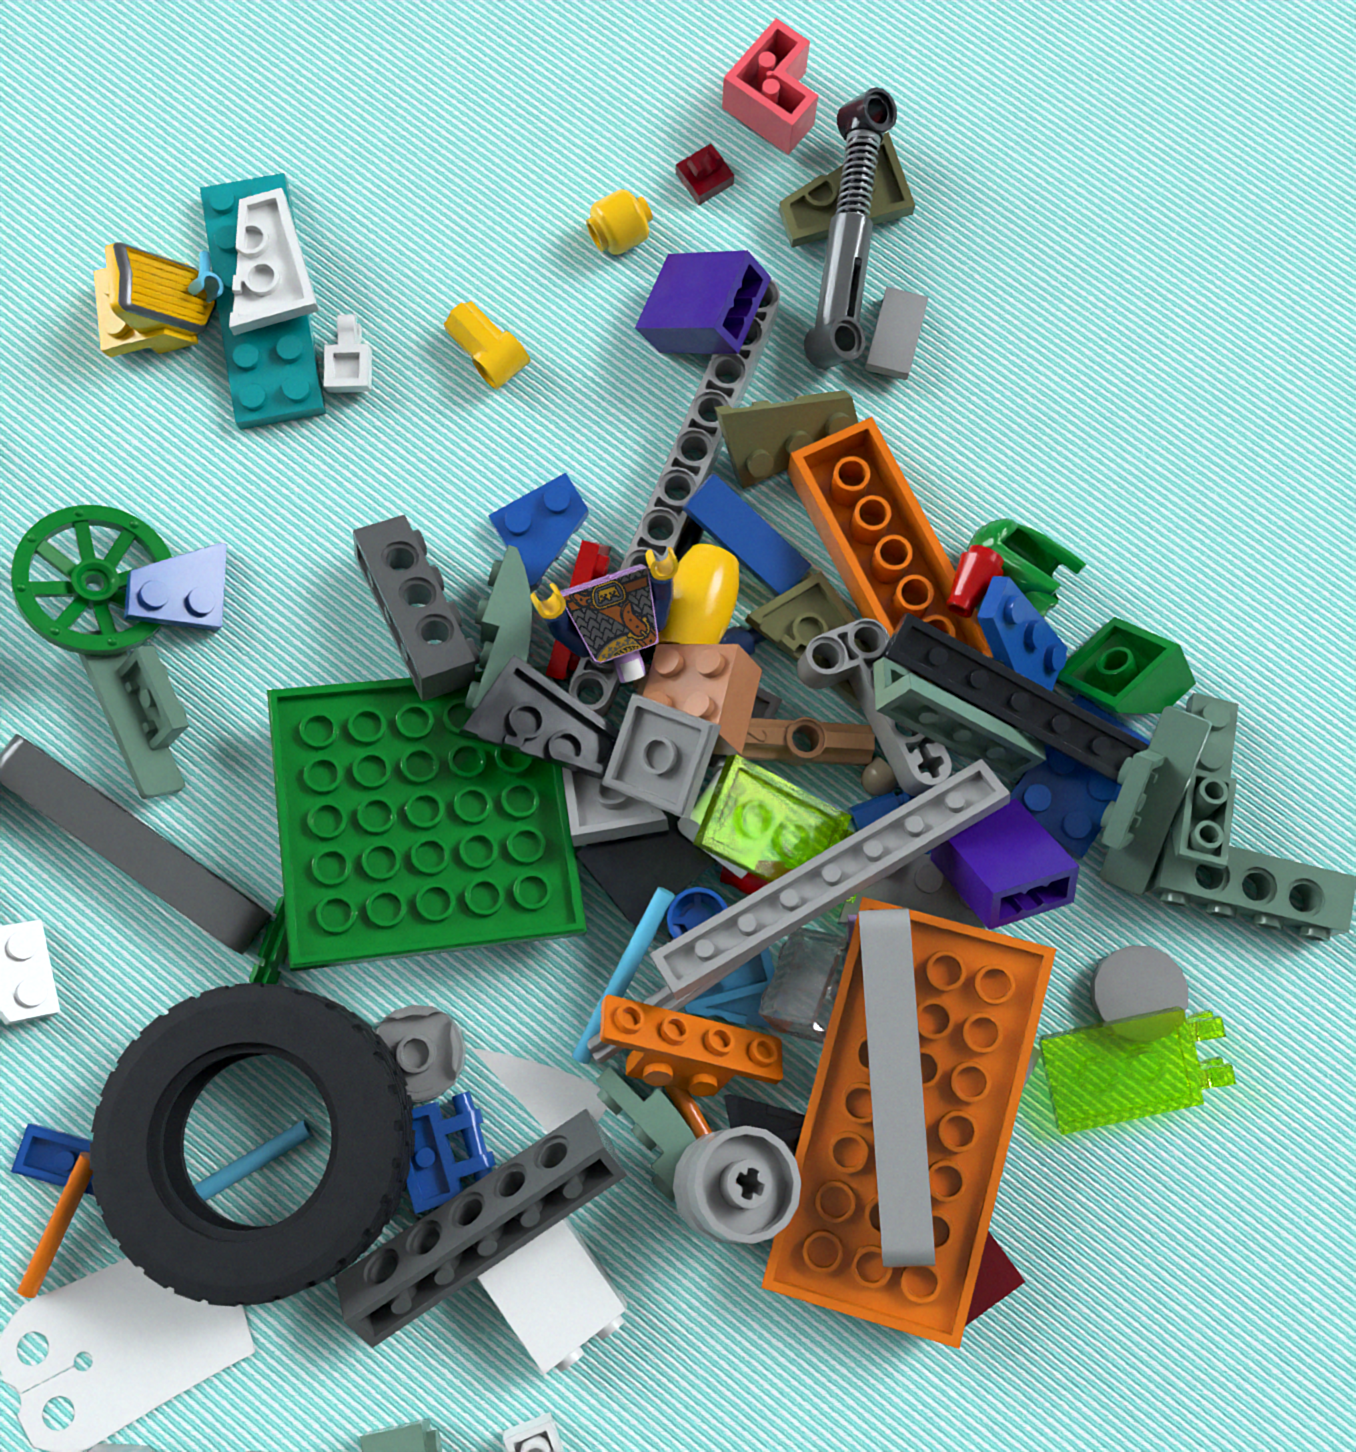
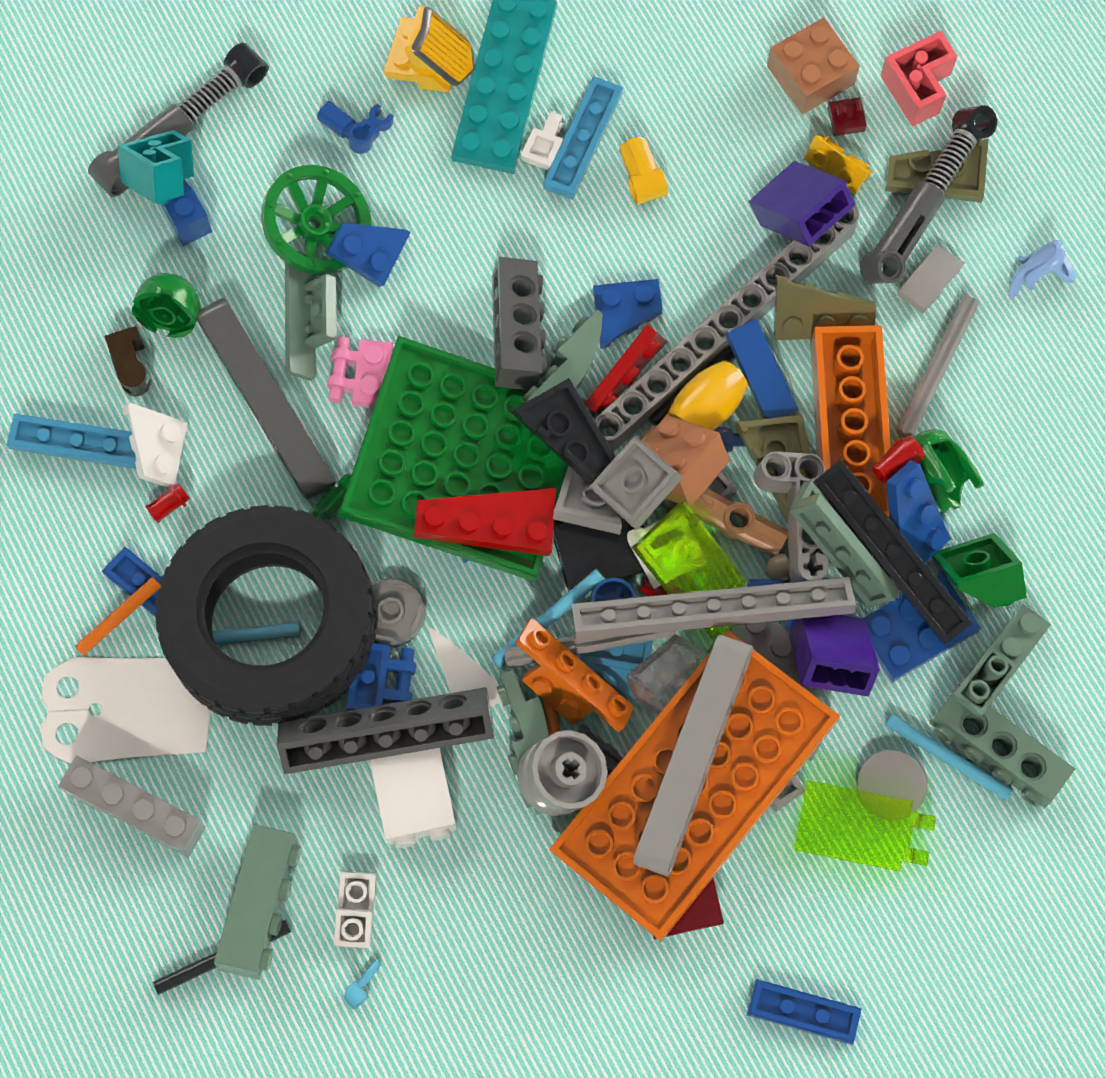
camera: 25 degrees right, 5 degrees down
(60, 1039) = (168, 502): none -> red pin
(106, 444) = (360, 134): none -> blue bar
(208, 280) = (473, 53): medium azure hand -> none
(250, 741) = (371, 366): none -> bright pink plate
(270, 268) = (520, 62): white wing -> none
(392, 333) = (583, 138): none -> dark azure plate
(502, 882) = (497, 520): none -> red wing
(614, 614) = (646, 380): torso -> none
(619, 222) = (771, 125): yellow head -> none
(636, 126) = (813, 65): none -> nougat brick
(709, 233) = (830, 158): none -> yellow hinge
(954, 439) = (937, 366): none -> light grey axle
(1019, 260) = (1039, 263): none -> light blue piece
(1150, 799) = (952, 654): sand green bracket -> none
(1166, 1339) = (804, 1012): none -> blue tile
(1190, 924) = (949, 757): none -> medium azure piece

